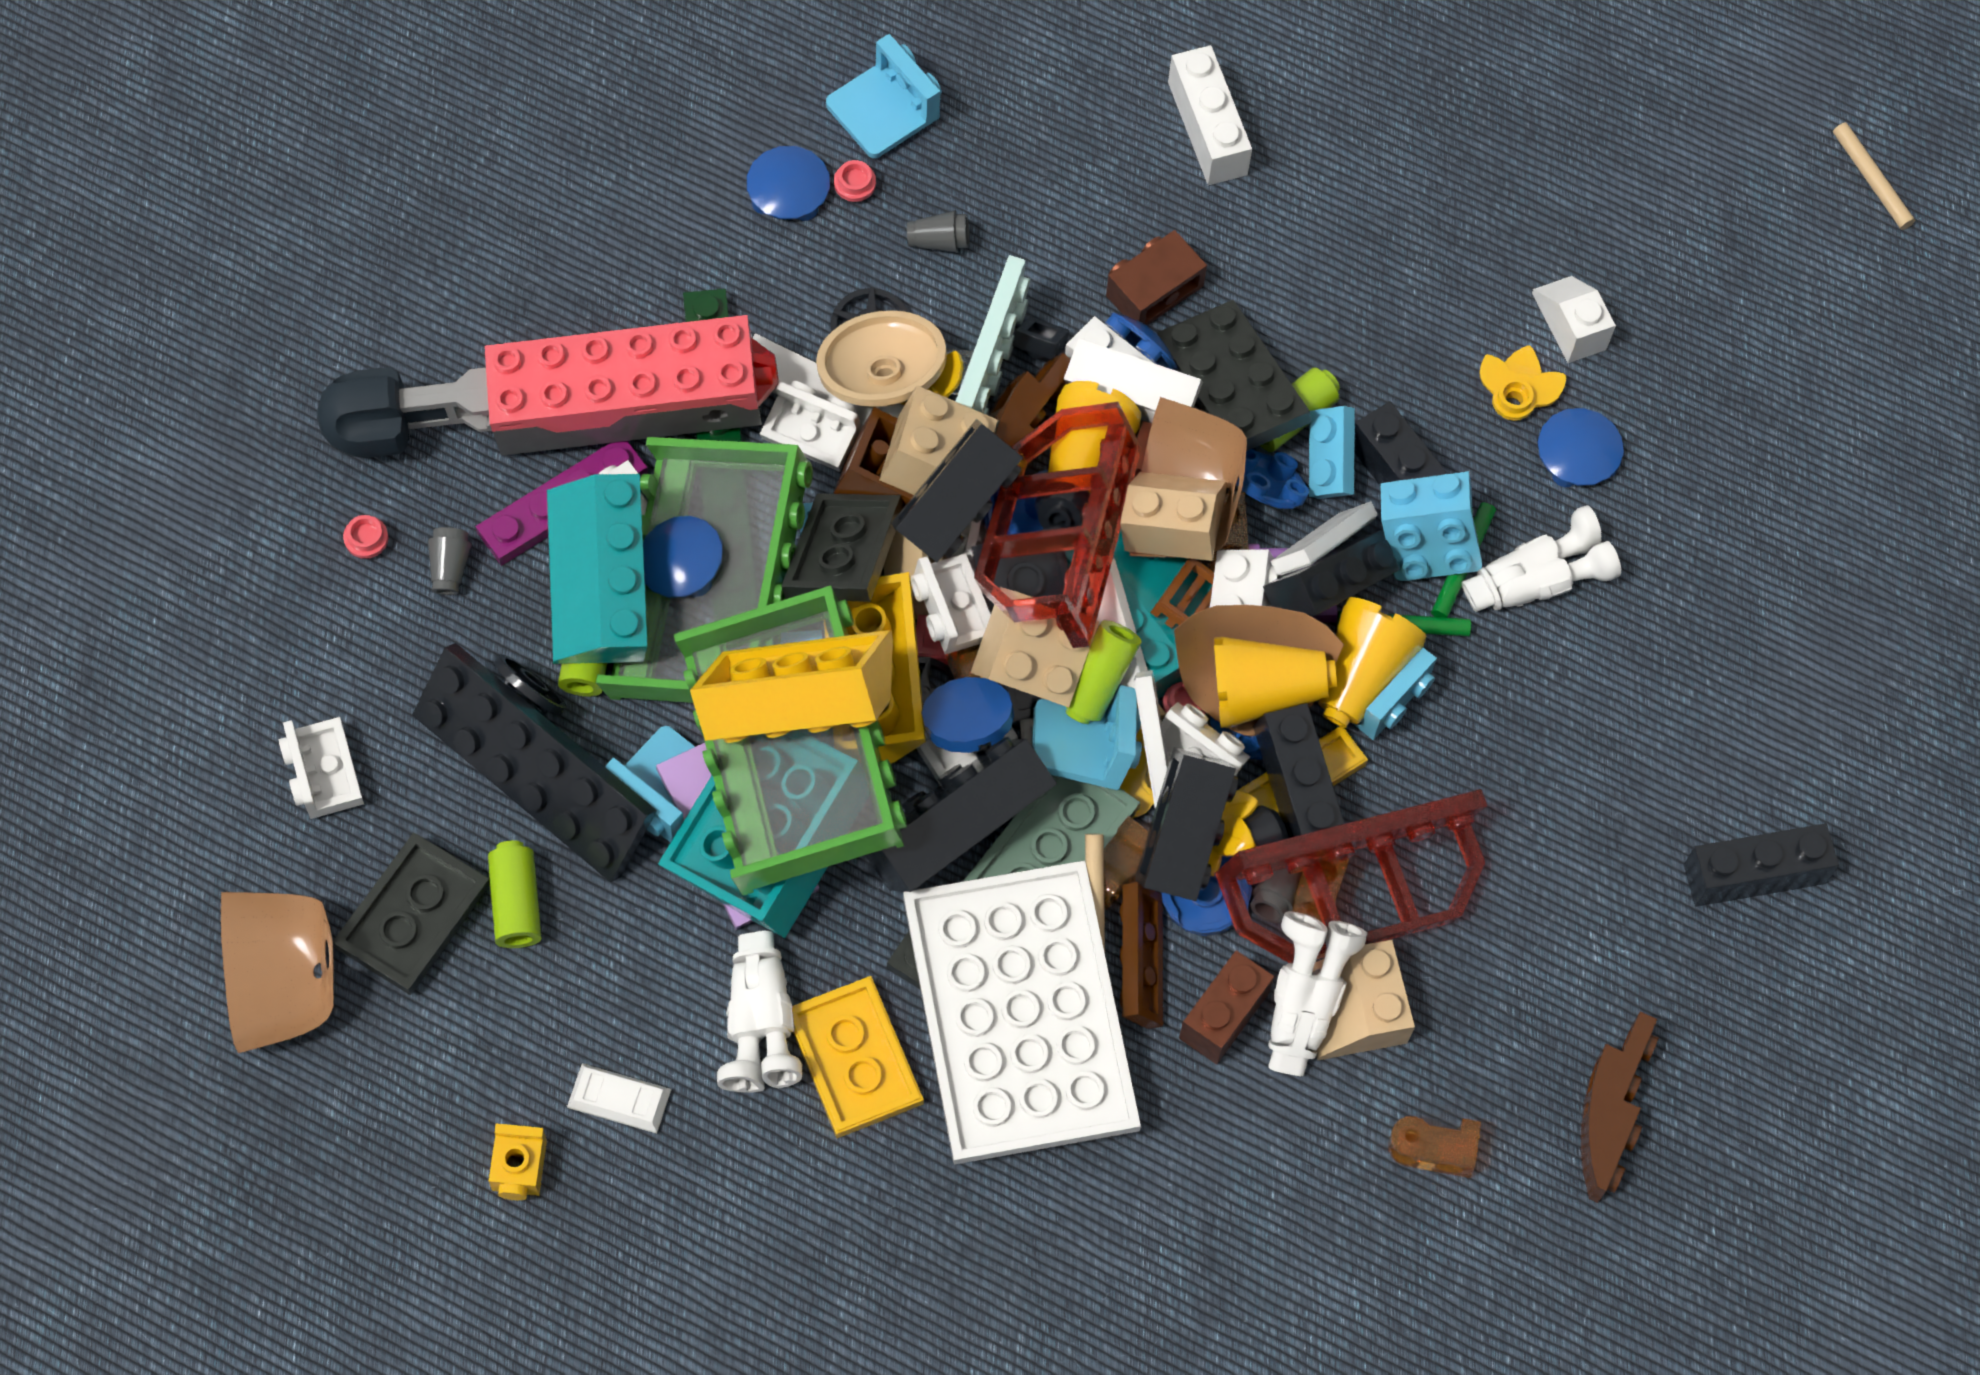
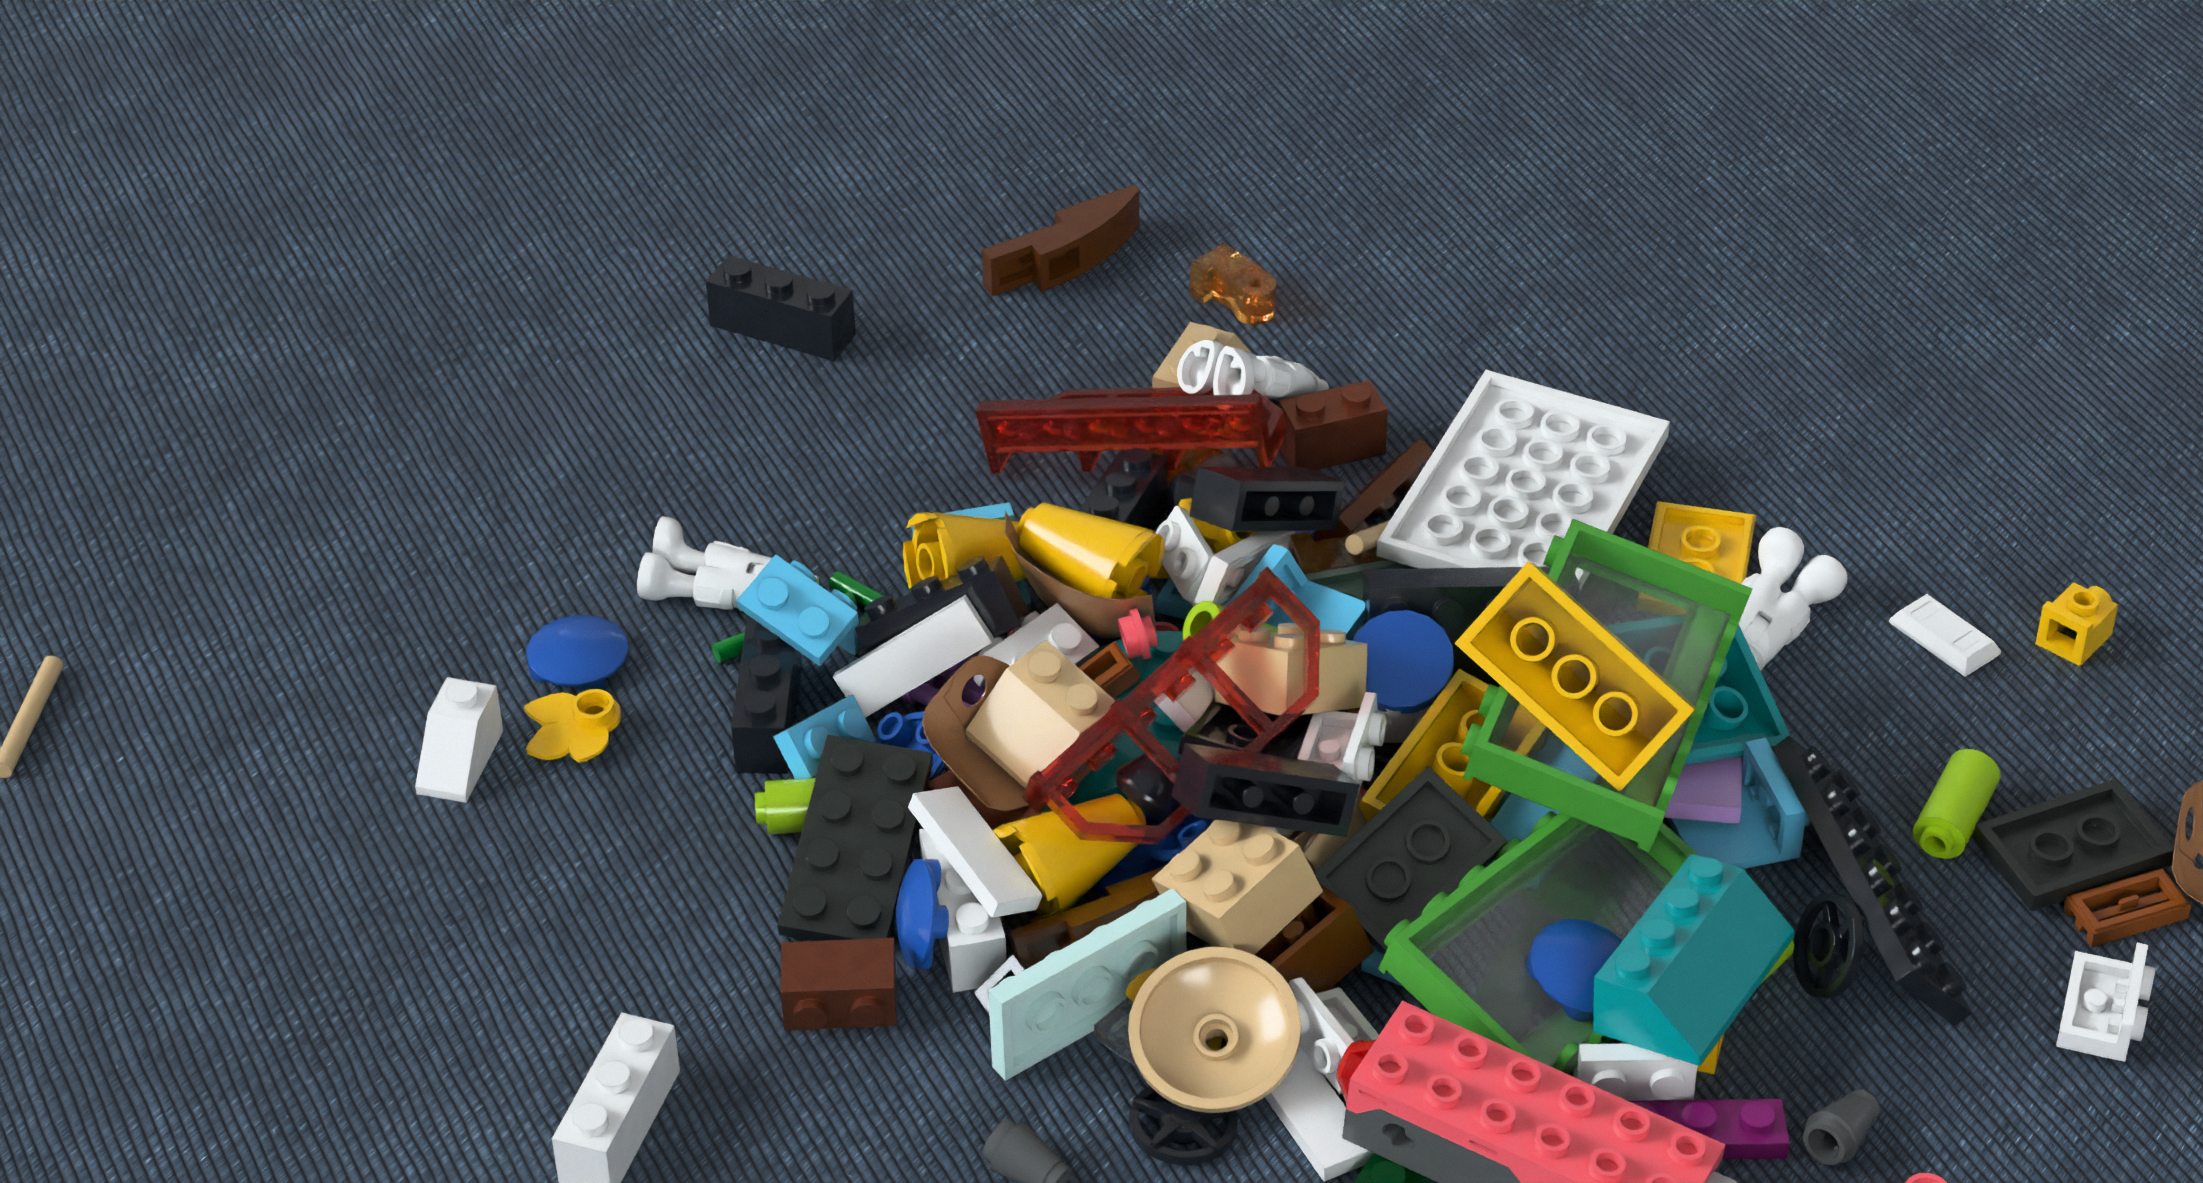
camera: 140 degrees left, 25 degrees down
(339, 871) = (2132, 913): none -> dark orange tile
(1167, 618) = (1137, 634): none -> coral plate

